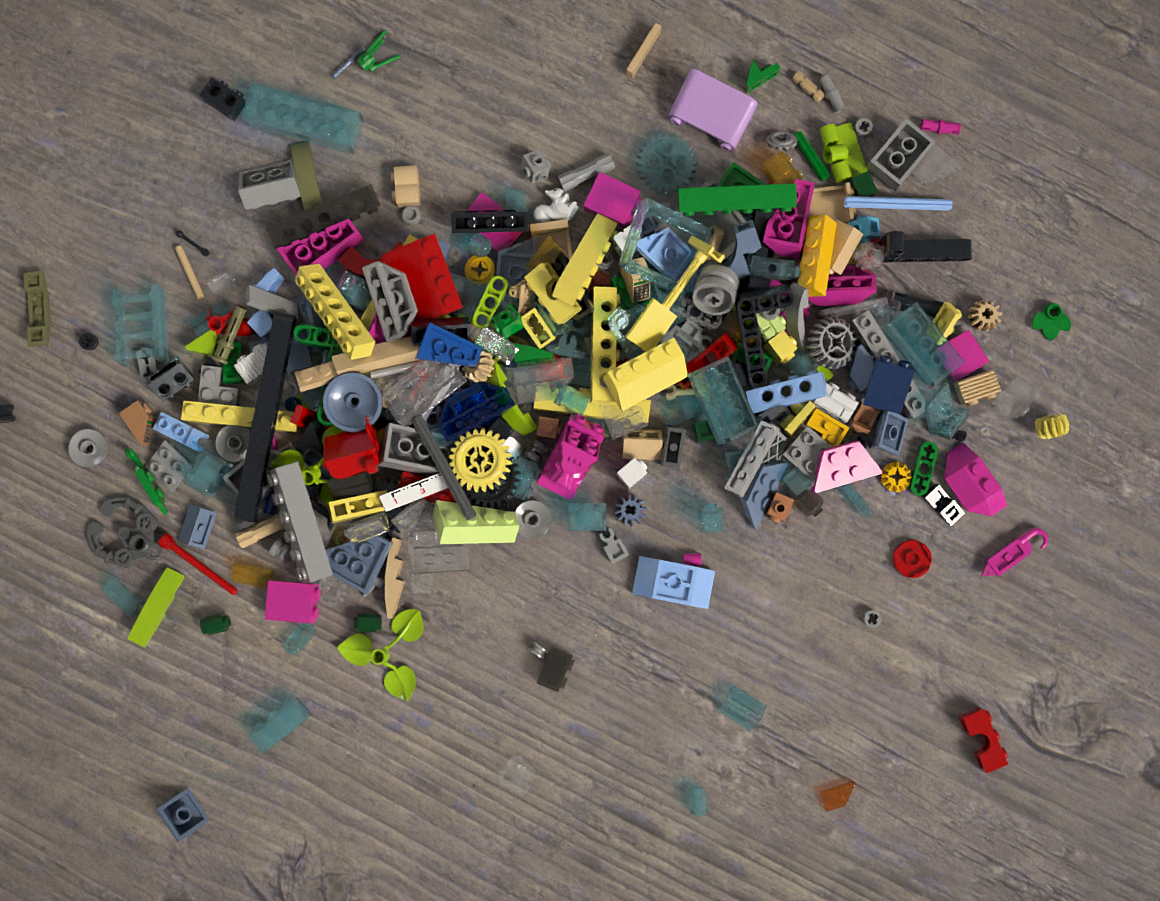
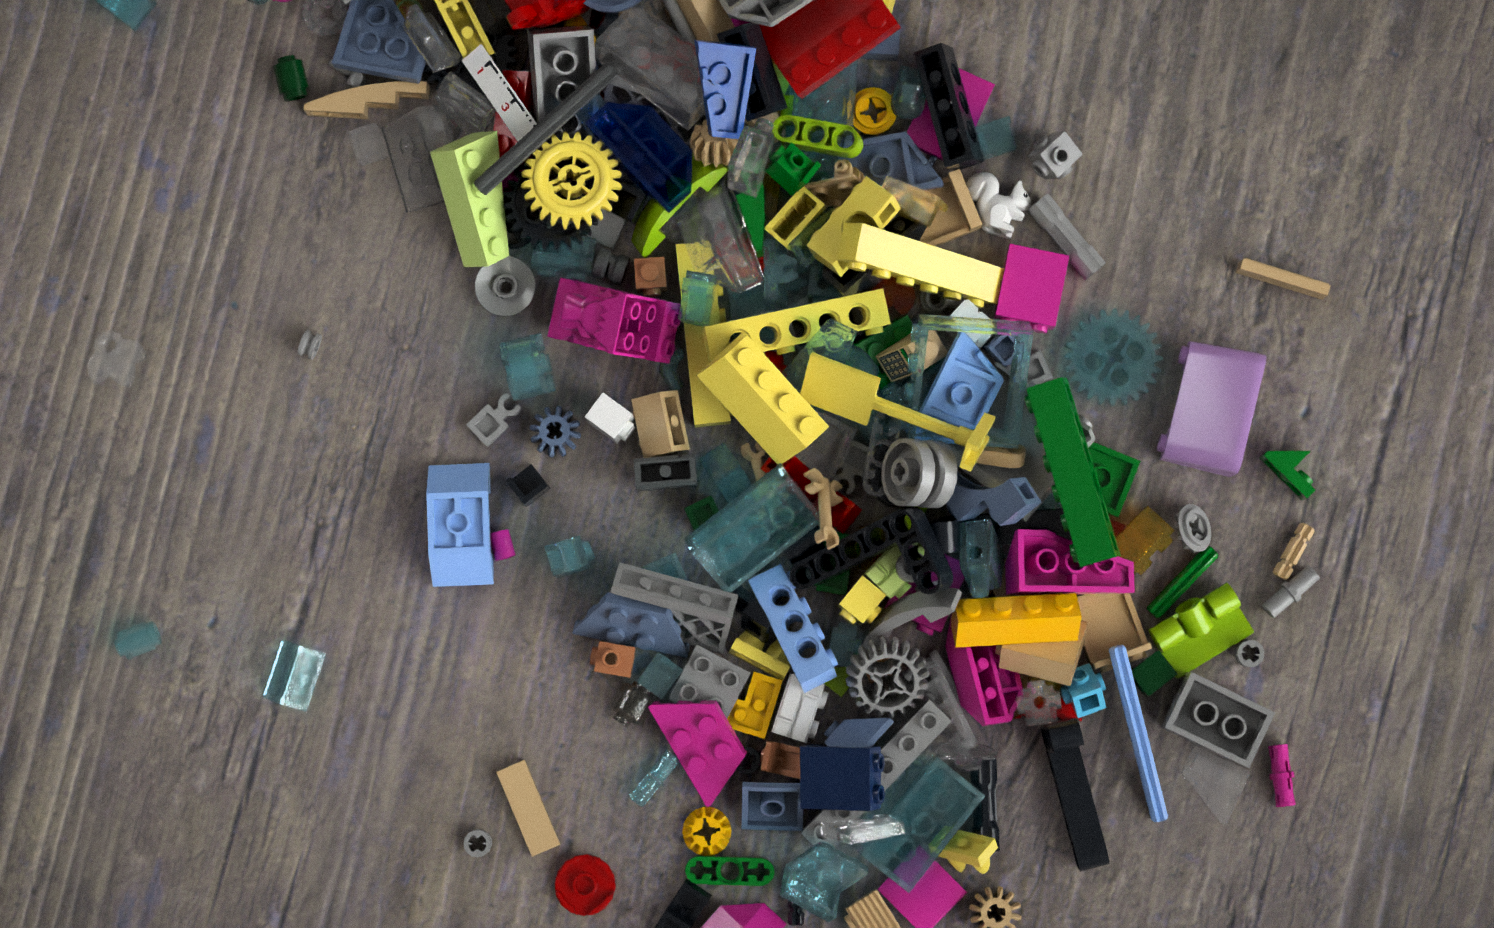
camera: 75 degrees right, 0 degrees up
(358, 651) = (245, 74): lime plant -> none
(555, 668) = (286, 376): clear smoke brick -> none
(623, 422) = (683, 385): clear wing -> none
(659, 534) = (528, 485): none -> black panel
(713, 351) = (826, 498): none -> tan bar
(837, 796) = (195, 852): clear orange tile -> none
(857, 582) = (528, 808): none -> tan tile
(924, 378) = (862, 830): none -> clear wing

